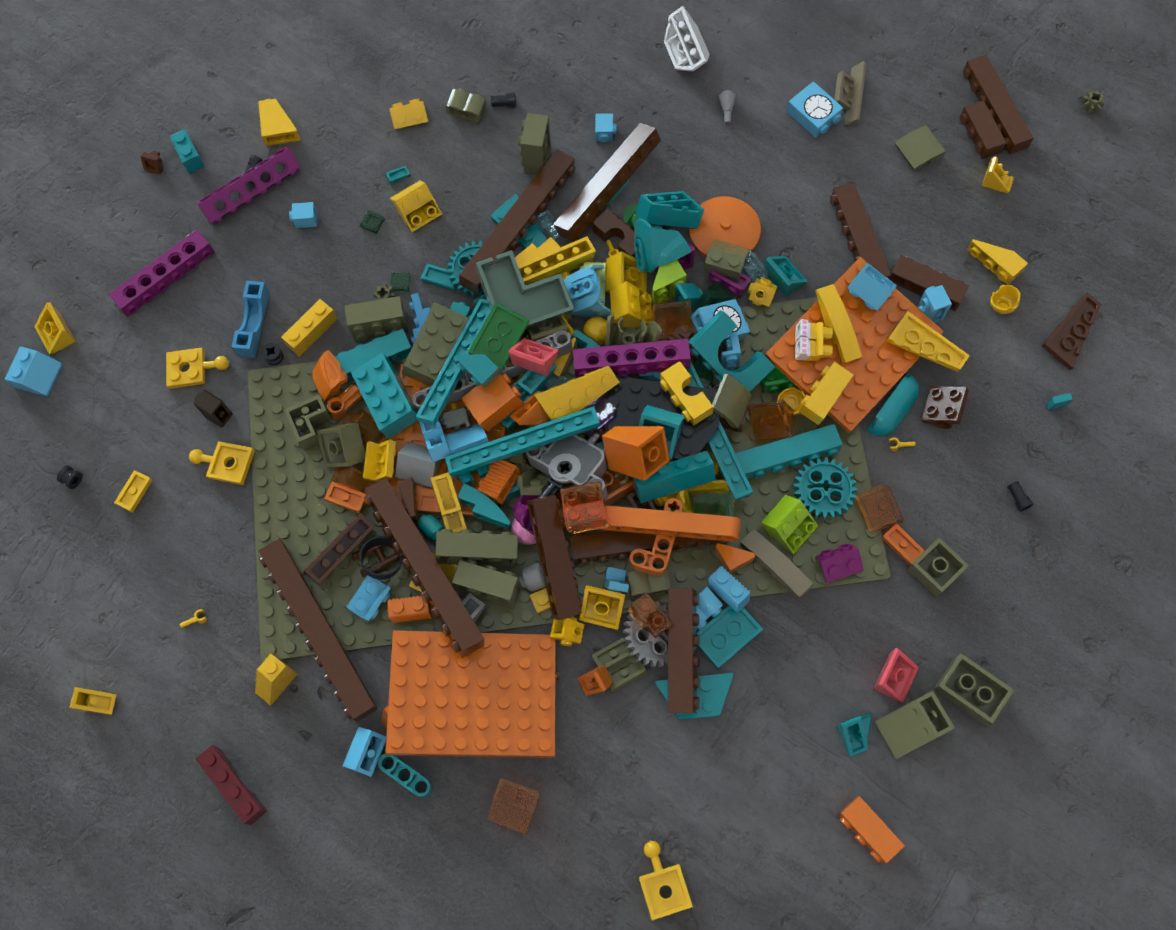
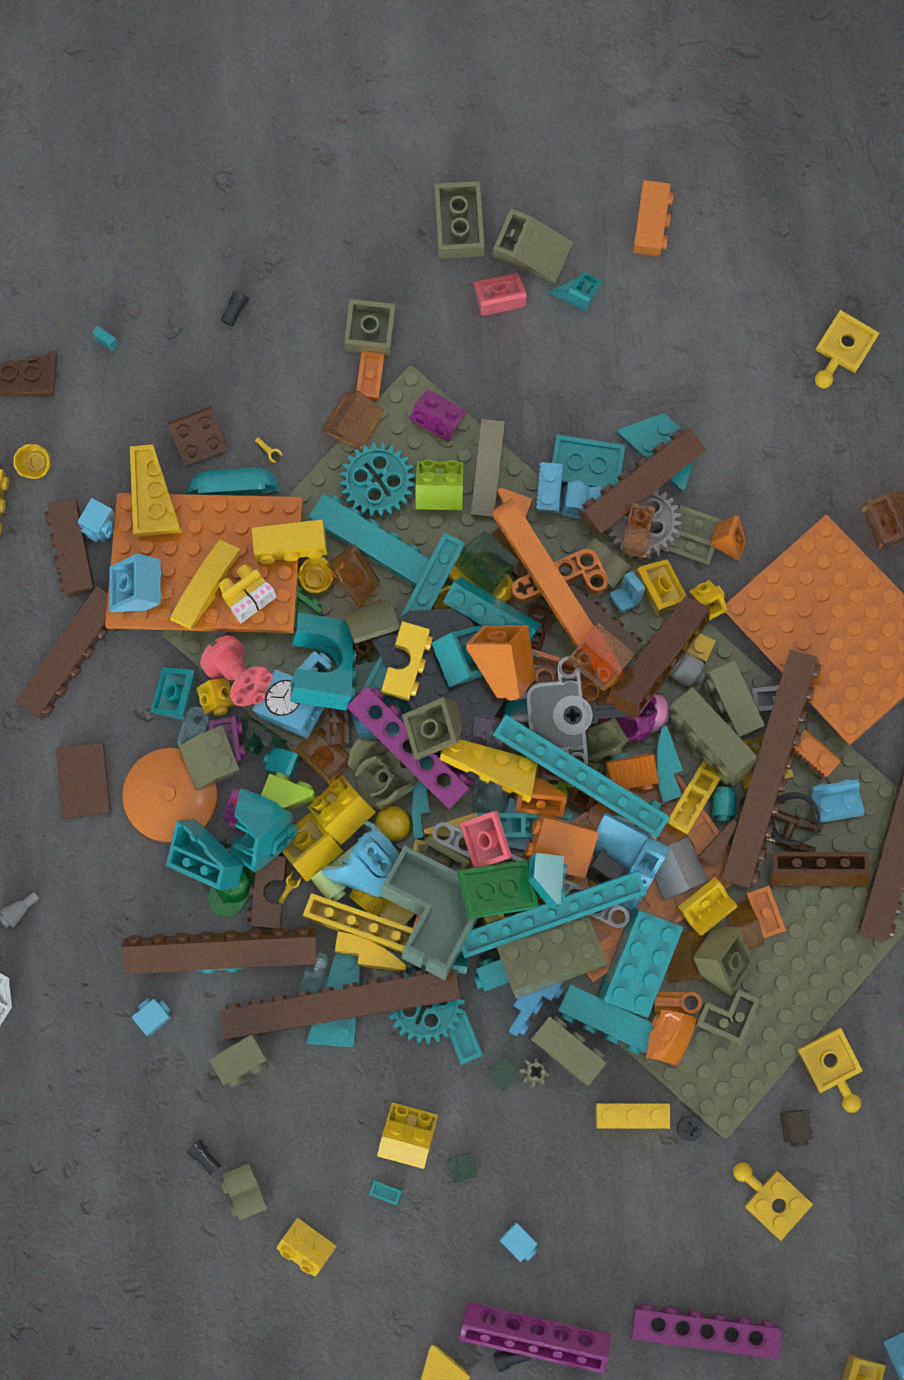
camera: 135 degrees left, 10 degrees up
(247, 338) = (675, 1182): dark azure arch -> none
(628, 375) = (433, 727): none -> olive slope
(774, 191) = (83, 780): none -> reddish brown tile
(779, 307) = (226, 661): none -> coral piece

